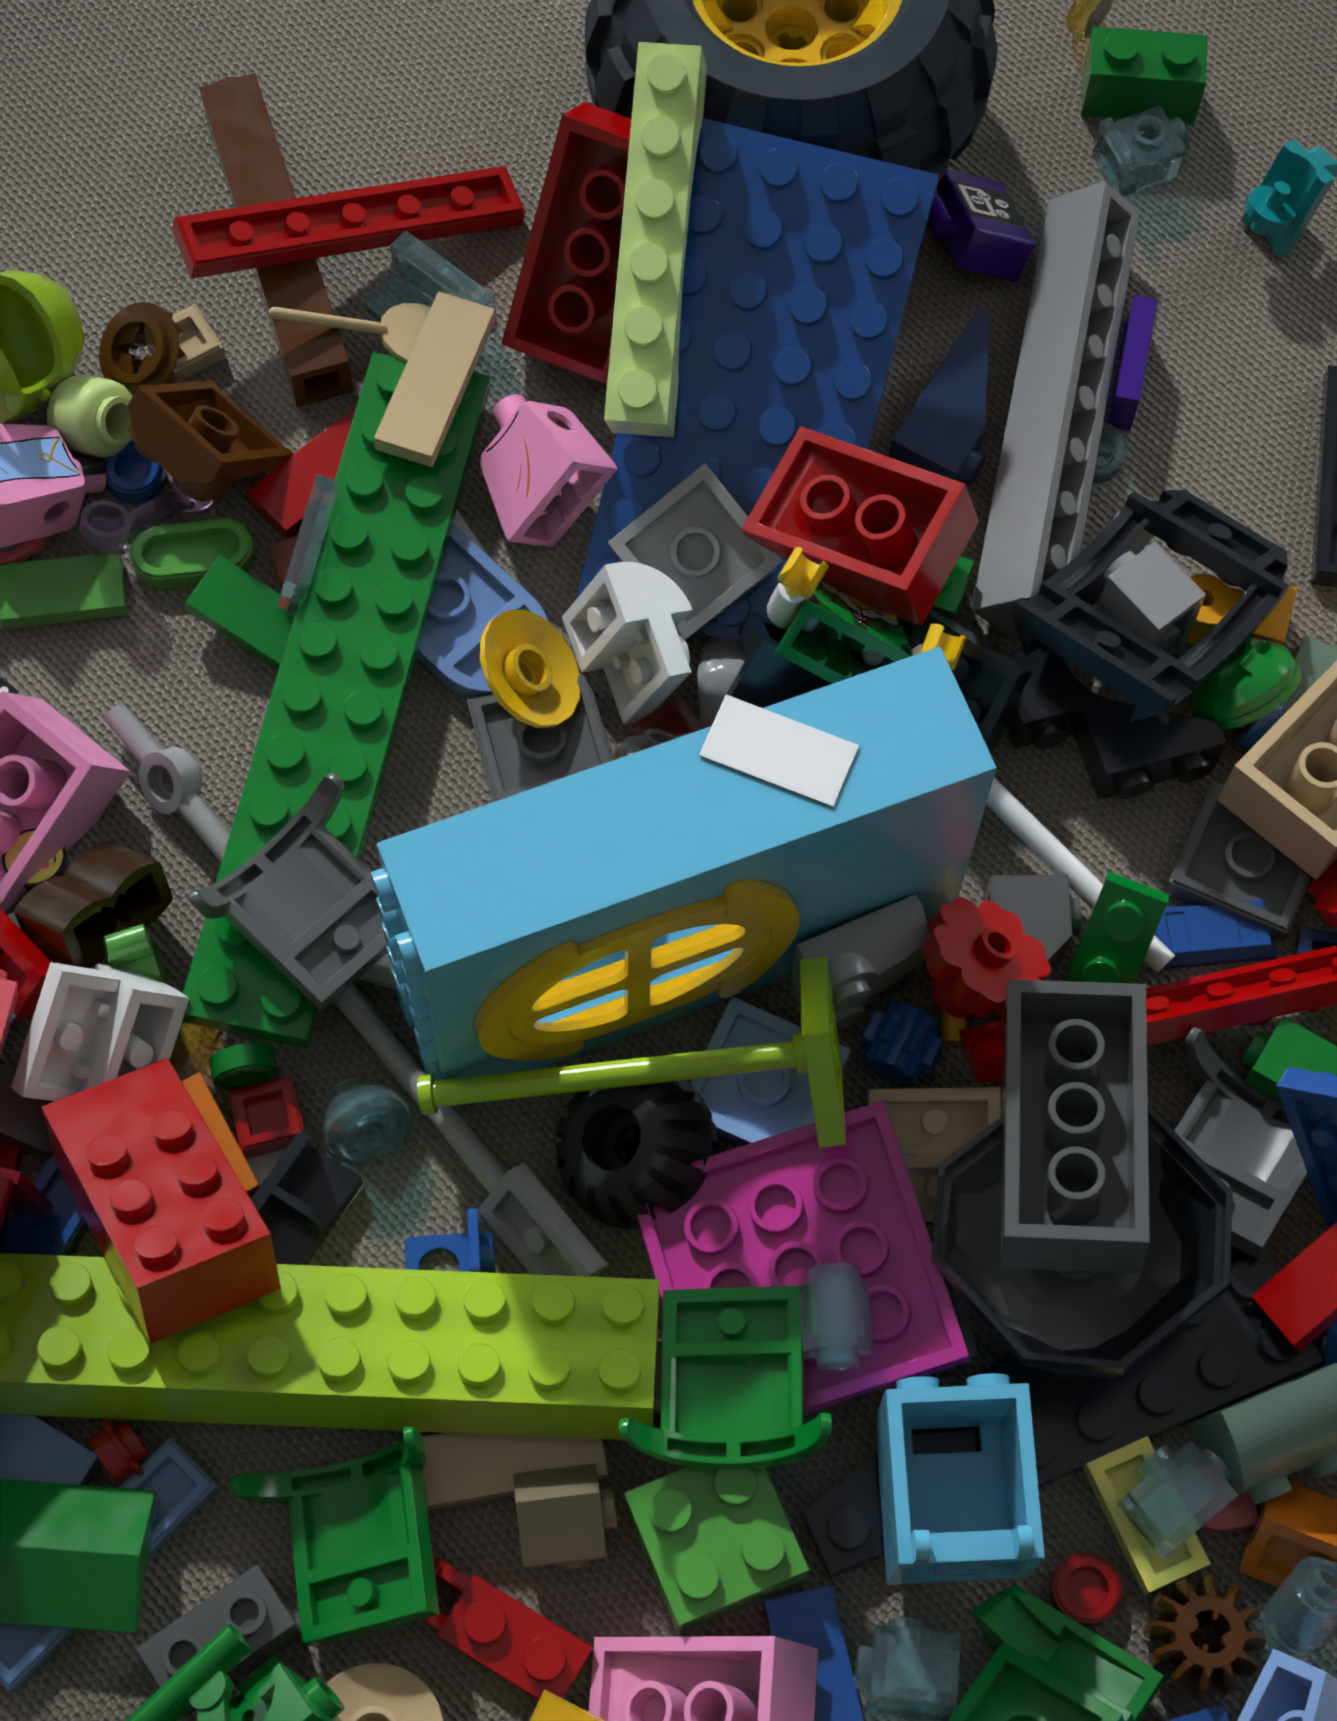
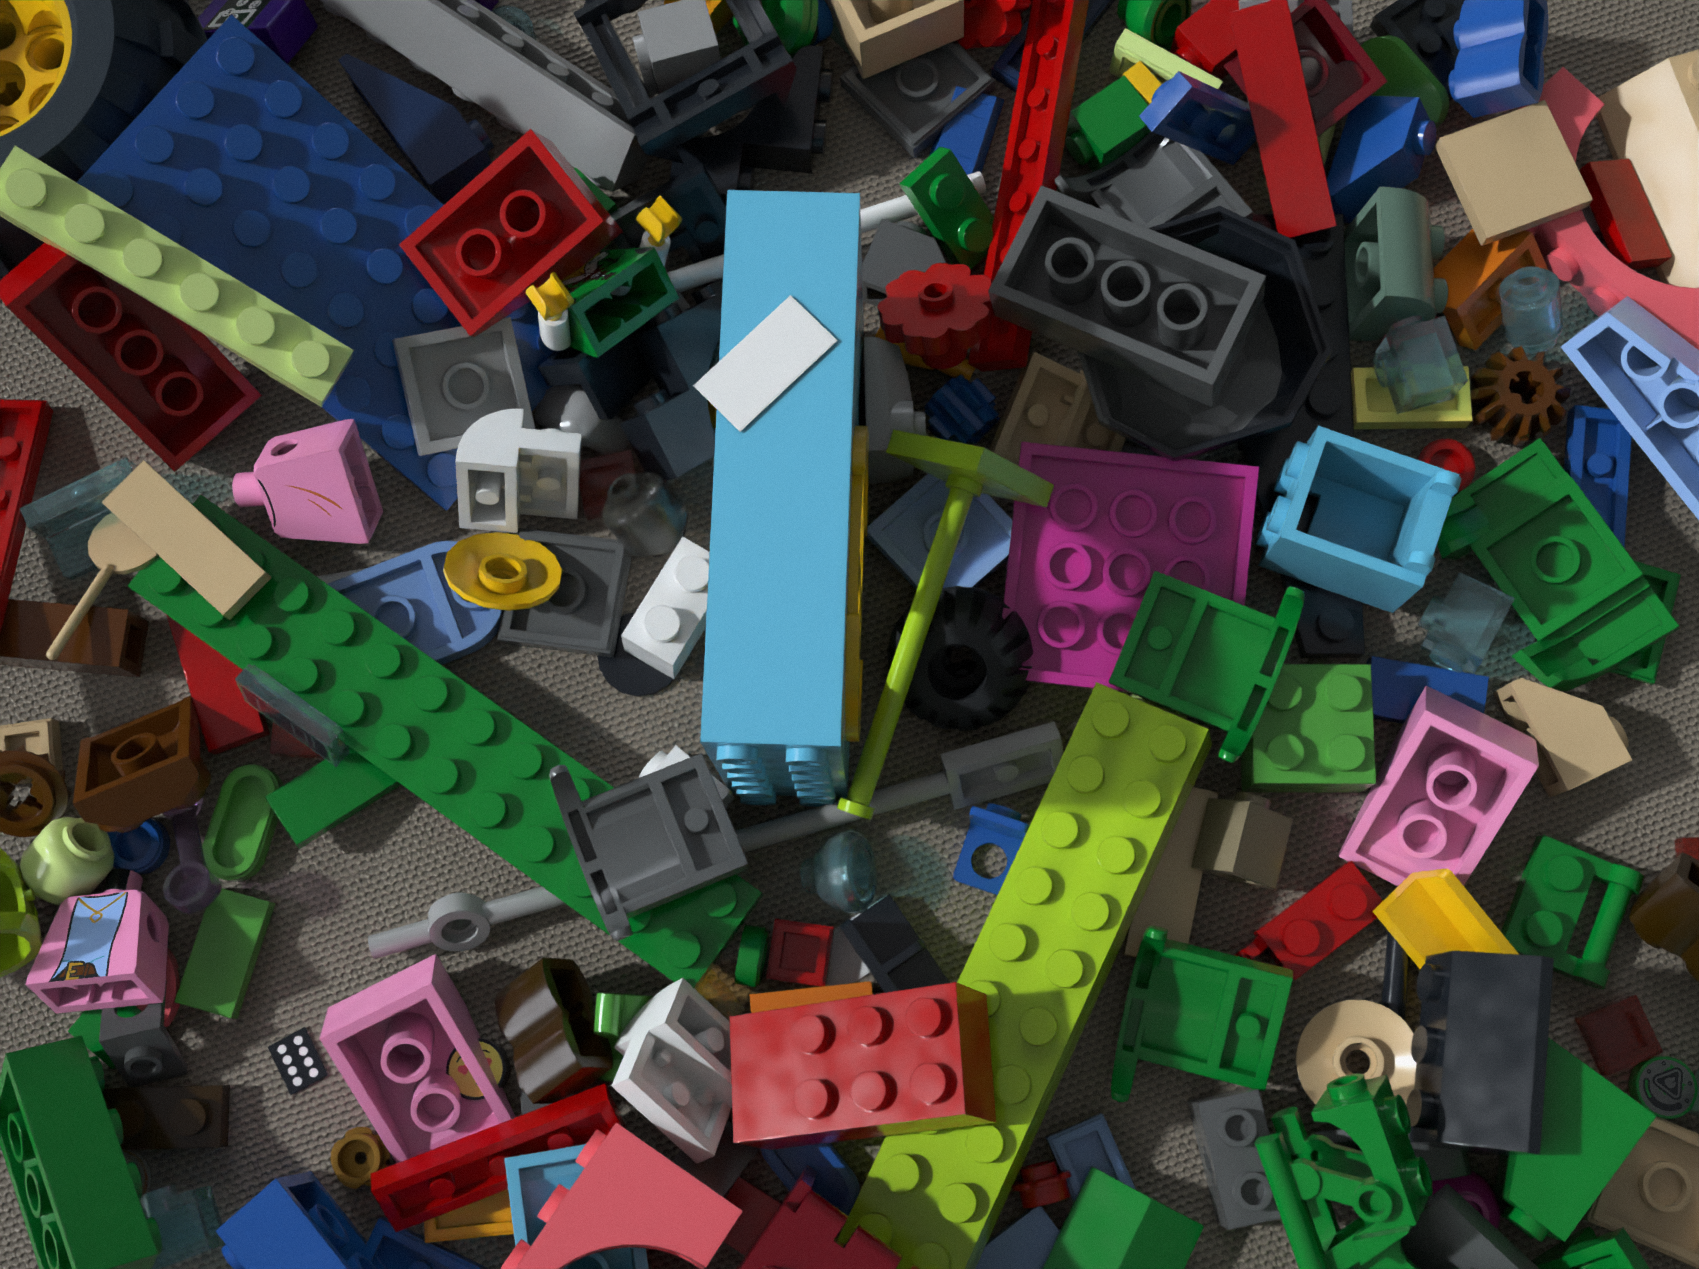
camera: 60 degrees left, 10 degrees up
(835, 1316) = (1191, 553): clear light blue brick -> none

